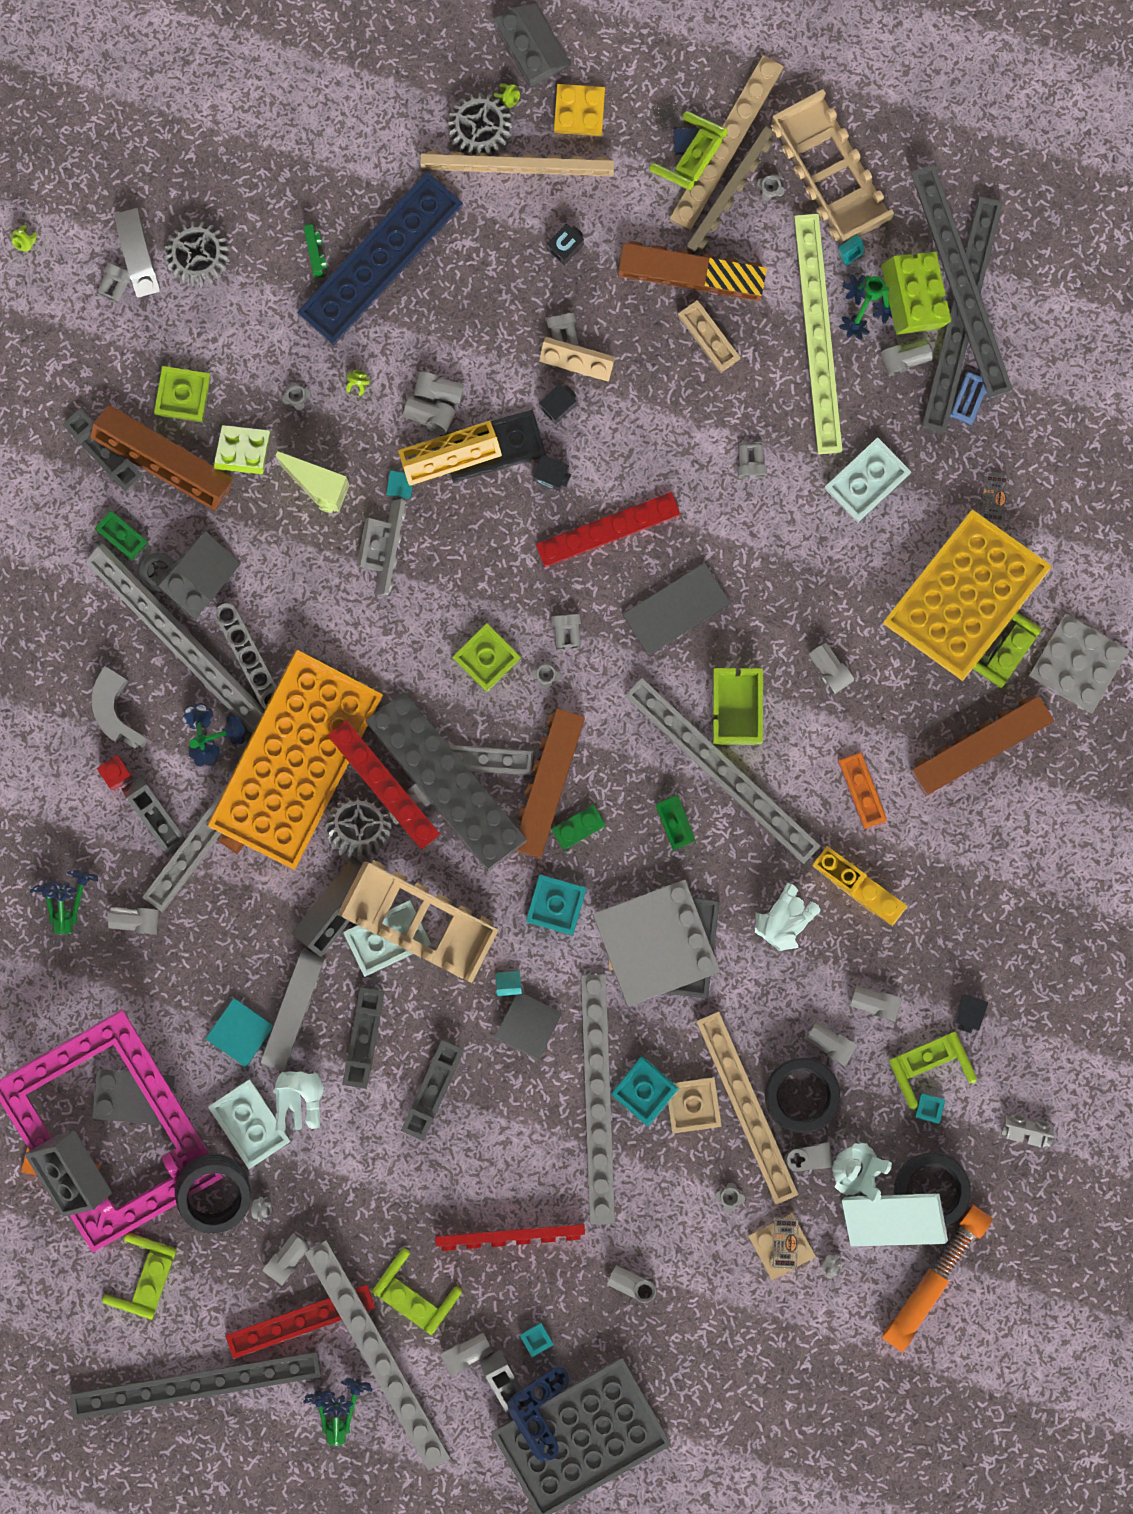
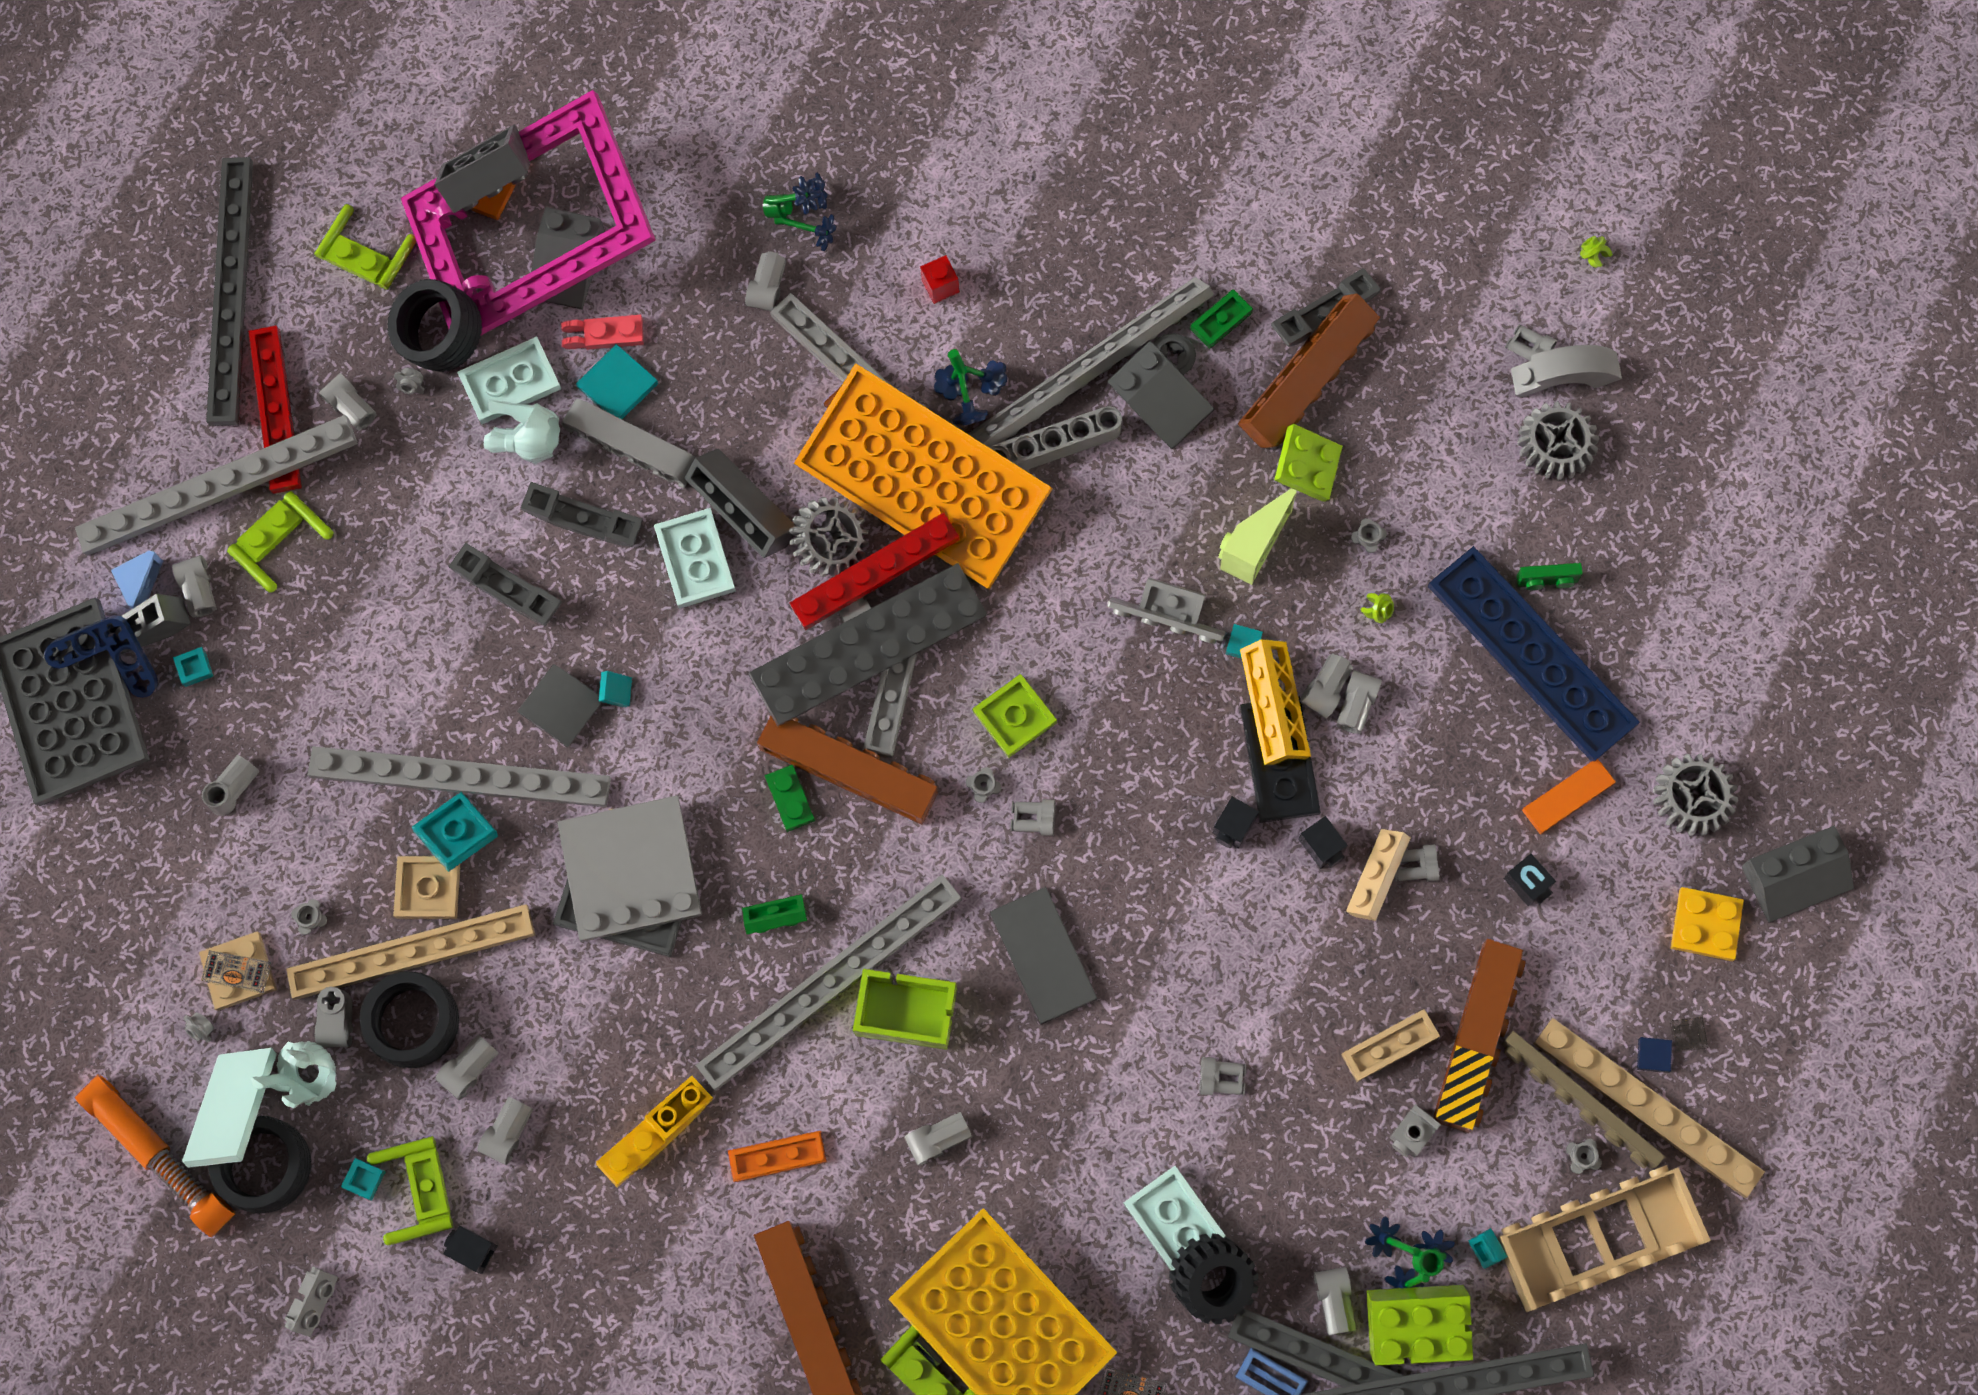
camera: 105 degrees right, 10 degrees down
(104, 706) = (1011, 278): light grey arch -> none
(153, 814) = (886, 315): dark grey slope -> none
(182, 394) = (1385, 405): lime plate -> none
(194, 1050) = (604, 332): none -> coral hinge
(336, 1429) = (158, 426): plant -> none
(460, 947) = (670, 639): tan window -> none
(468, 1405) = (138, 577): none -> light blue slope
(492, 221) = (1568, 796): none -> orange tile
(499, 1238) = (316, 663): red plate -> none
(508, 164) = (1639, 849): tan plate -> none
(510, 95) = (1731, 837): lime plate -> none
(556, 905) = (699, 758): teal plate -> none
(608, 529) = (1155, 885): red plate -> none
(697, 155) = (1635, 1063): lime plate -> none
(764, 315) = (1423, 1122): none -> light grey brick
(784, 921) = (622, 1021): light aqua piece -> none
(818, 334) = (1380, 1188): yellowish green plate -> none
(917, 435) = (1226, 1298): none -> black tyre

